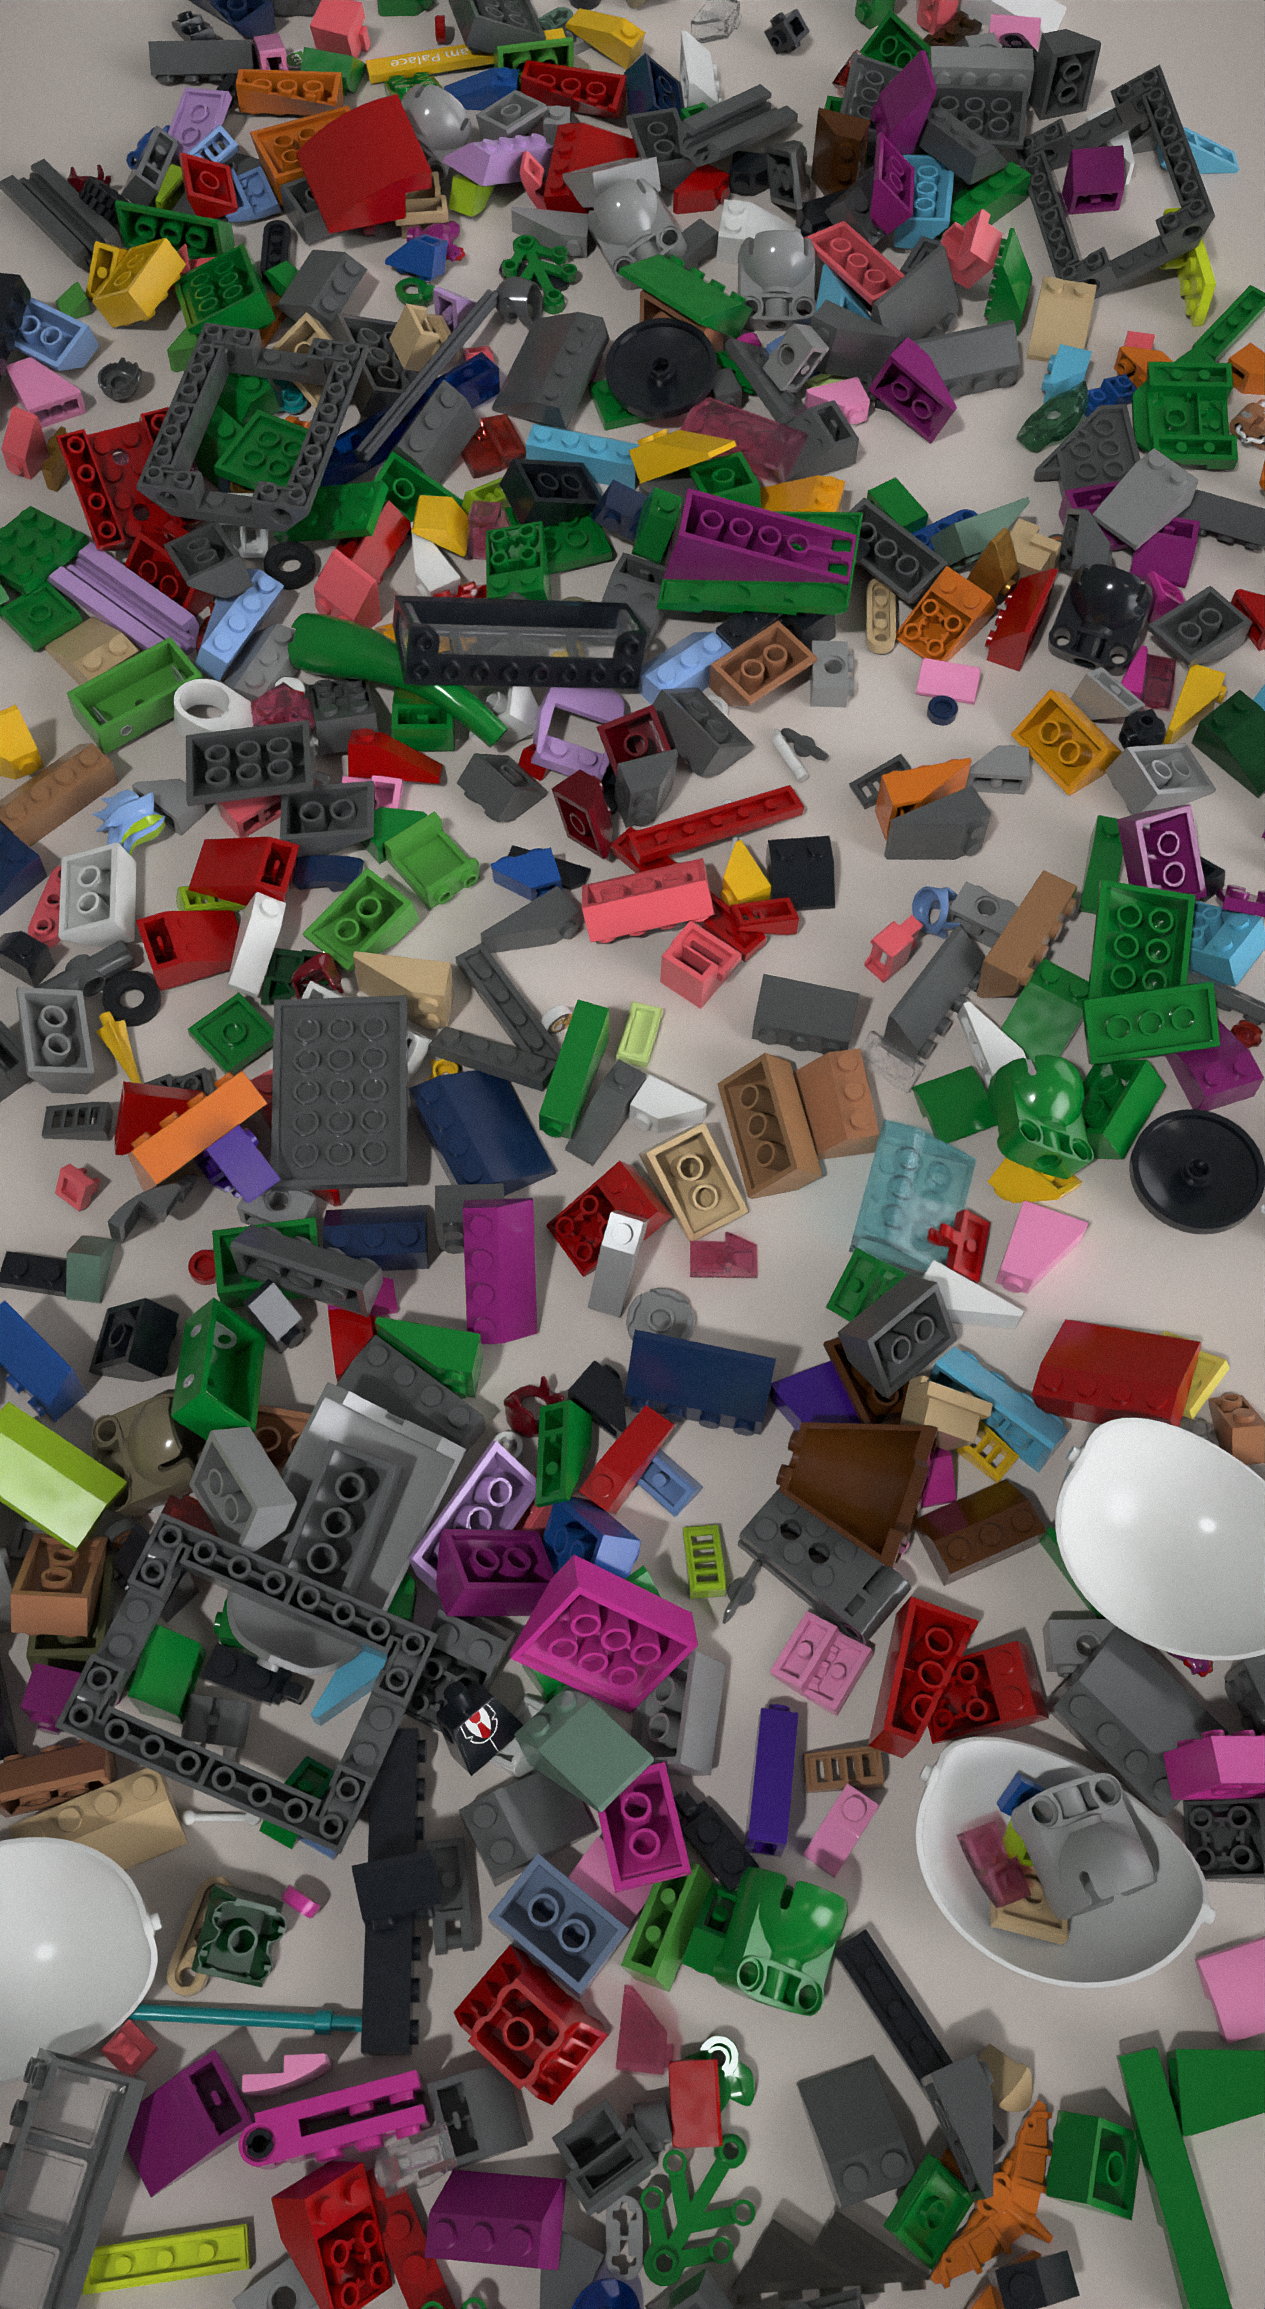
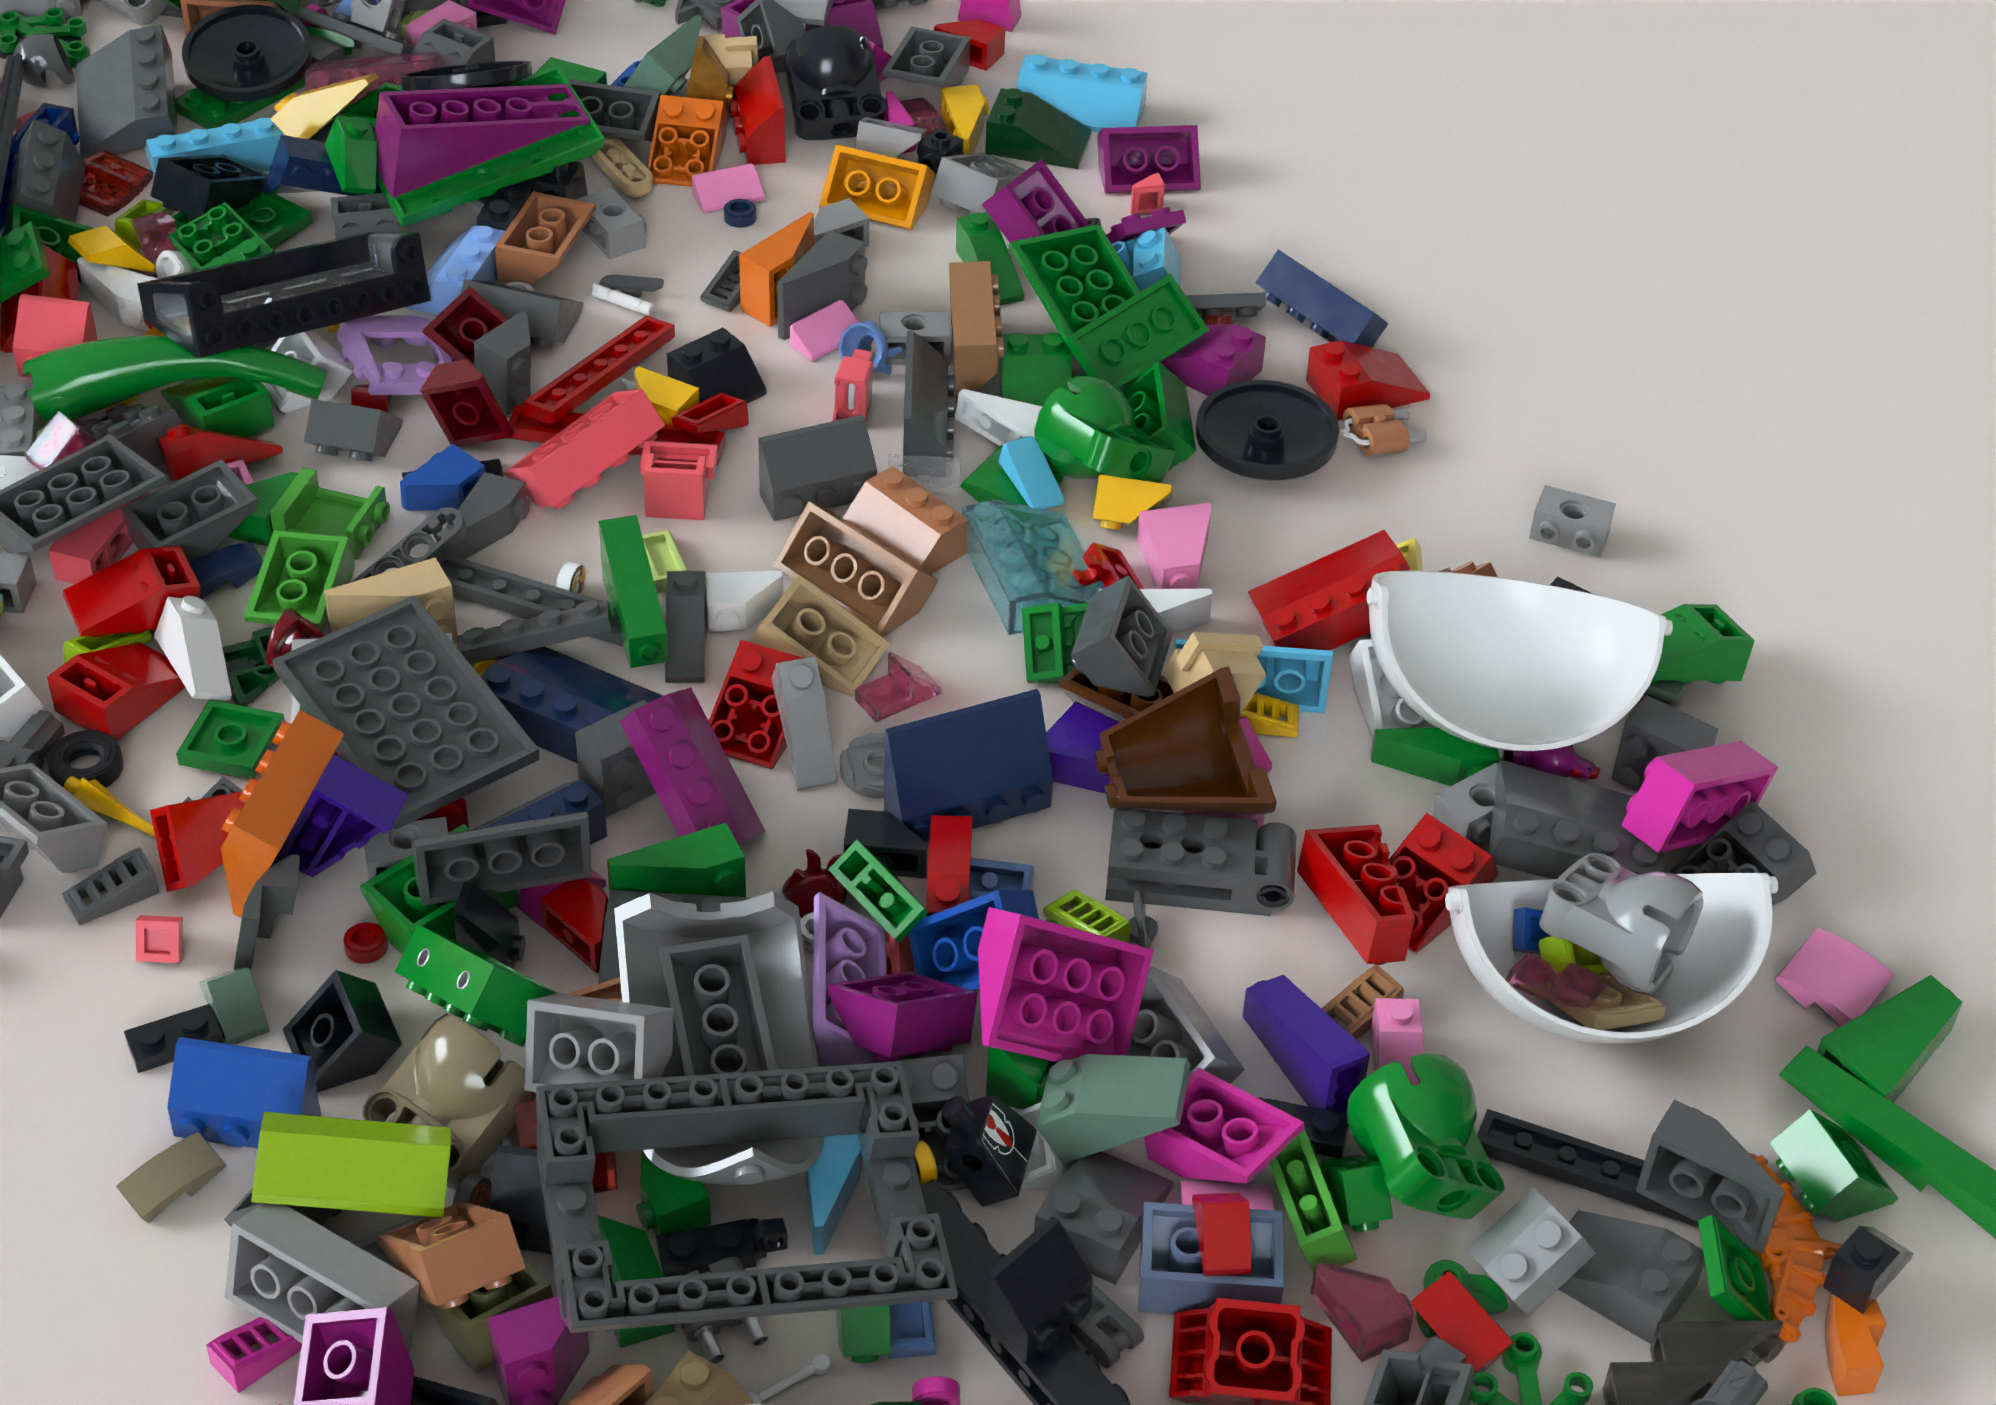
camera: 35 degrees left, 20 degrees down
(418, 1709) = (925, 1163): none -> yellow tile
(445, 936) = (400, 556): none -> dark grey beam
(475, 561) = (172, 263): none -> white tile
(567, 1919) = (1223, 1233): none -> red slope
(791, 2077) = (1531, 1251): none -> light grey slope
(792, 483) = (467, 76): none -> black dish
(821, 1663) = (1264, 943): bright pink slope -> none
(920, 869) = (822, 330): none -> bright pink slope
(968, 1113) = (1031, 473): none -> medium azure slope
(979, 1531) = (1320, 770): reddish brown slope -> none

